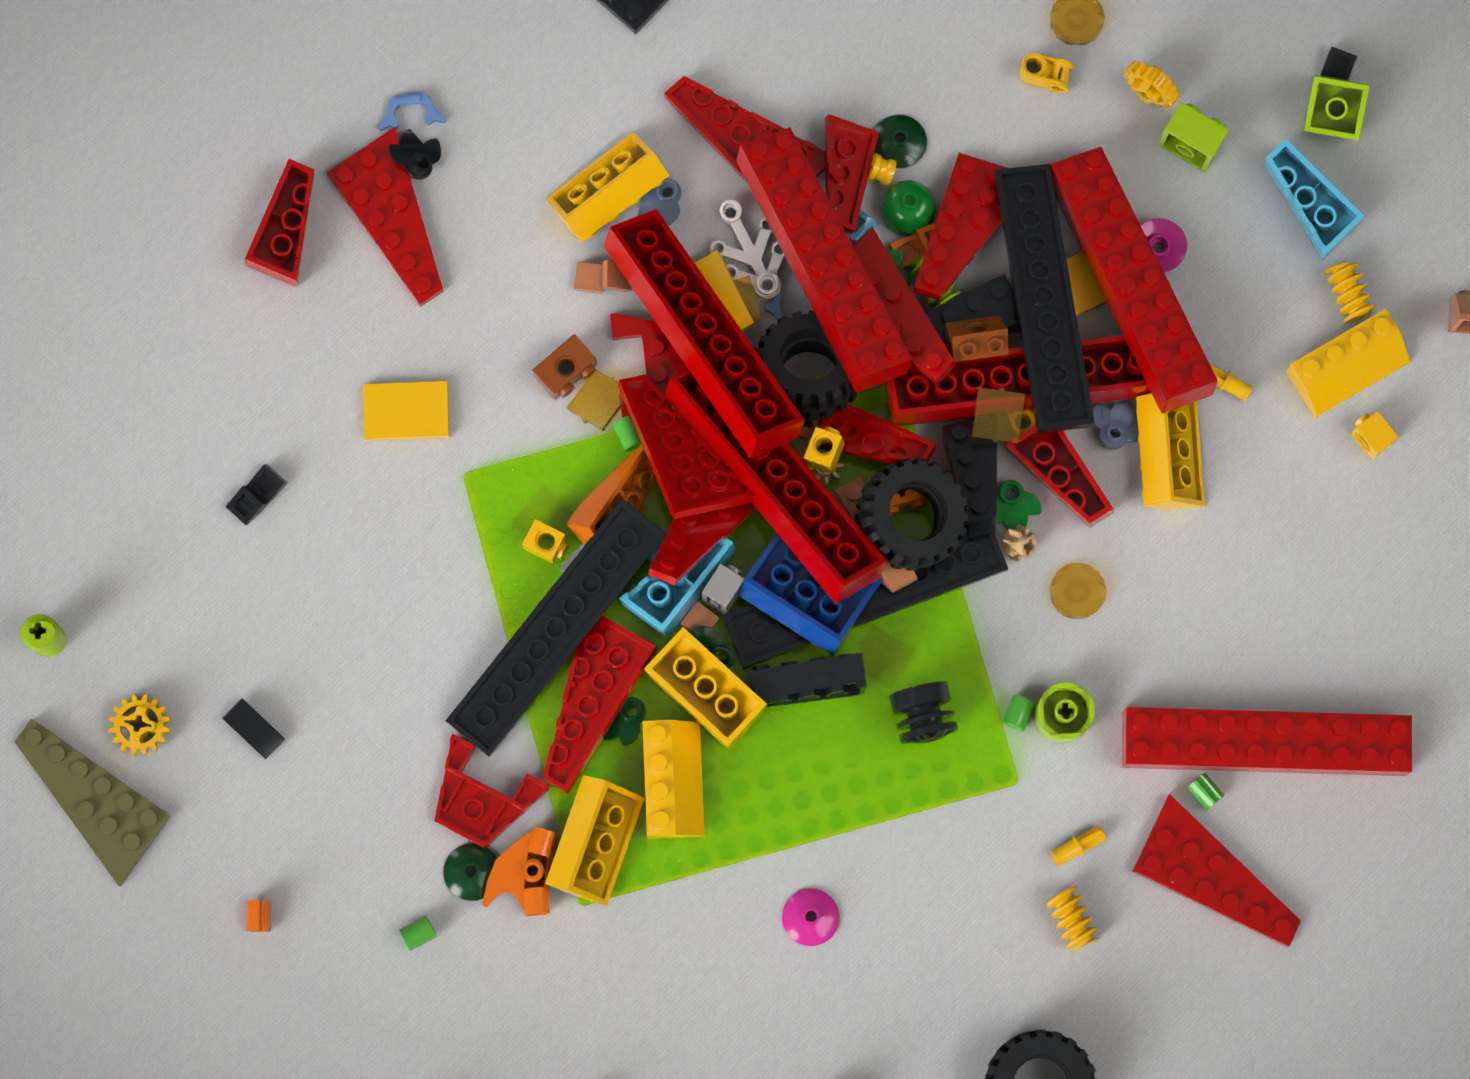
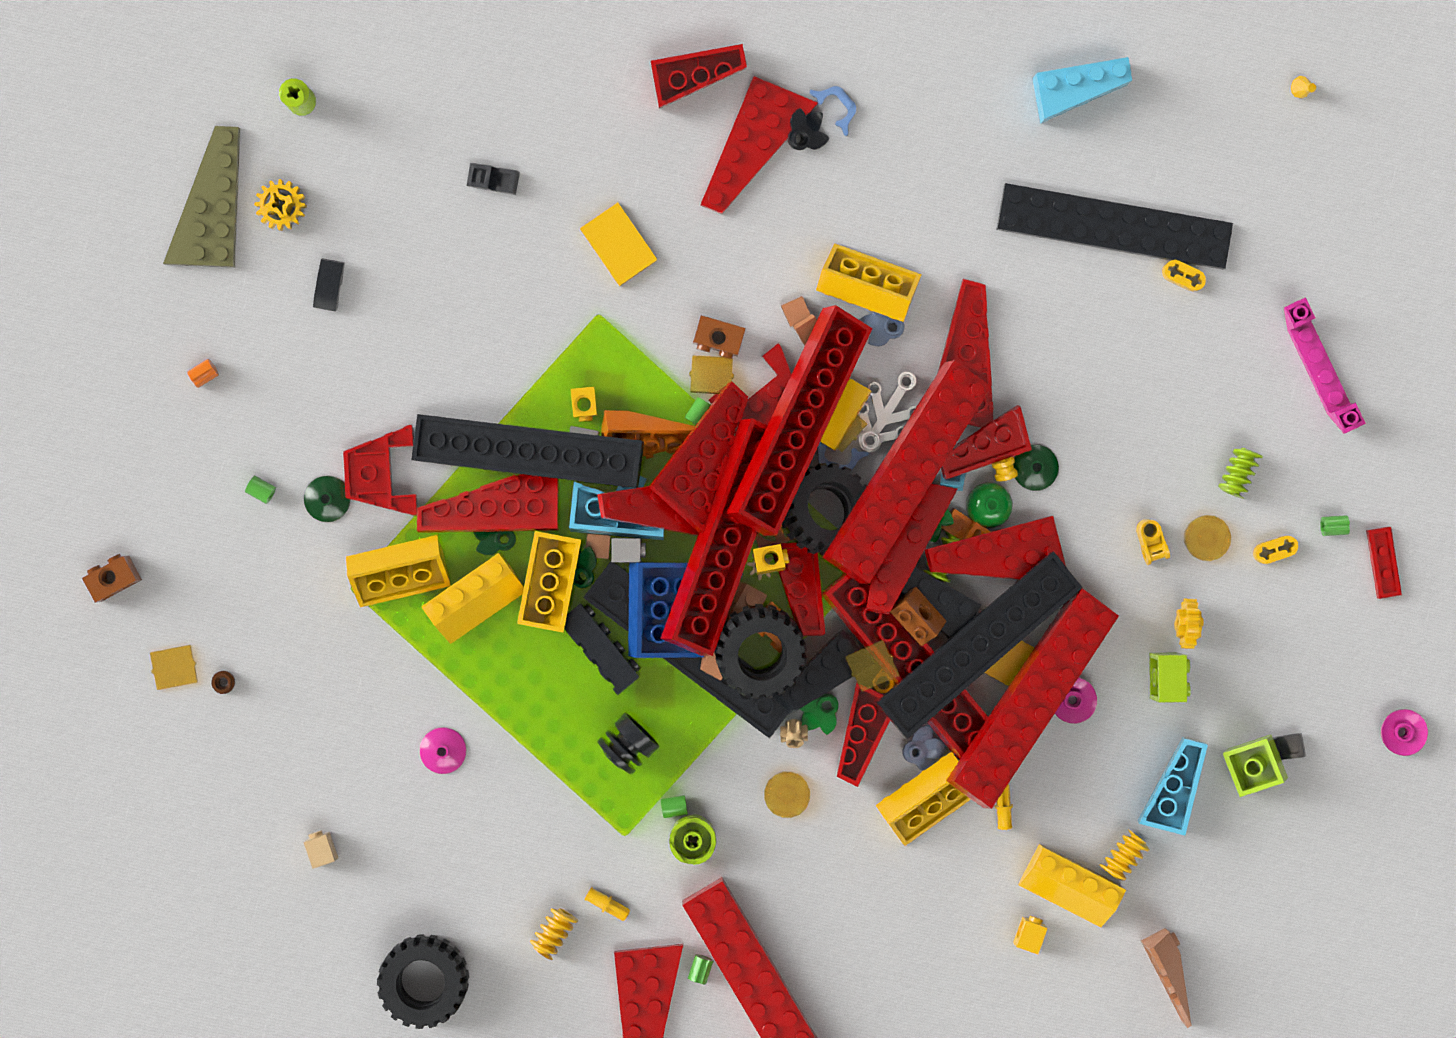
camera: 60 degrees right, 10 degrees up
(511, 872) = (340, 528): orange pin -> none

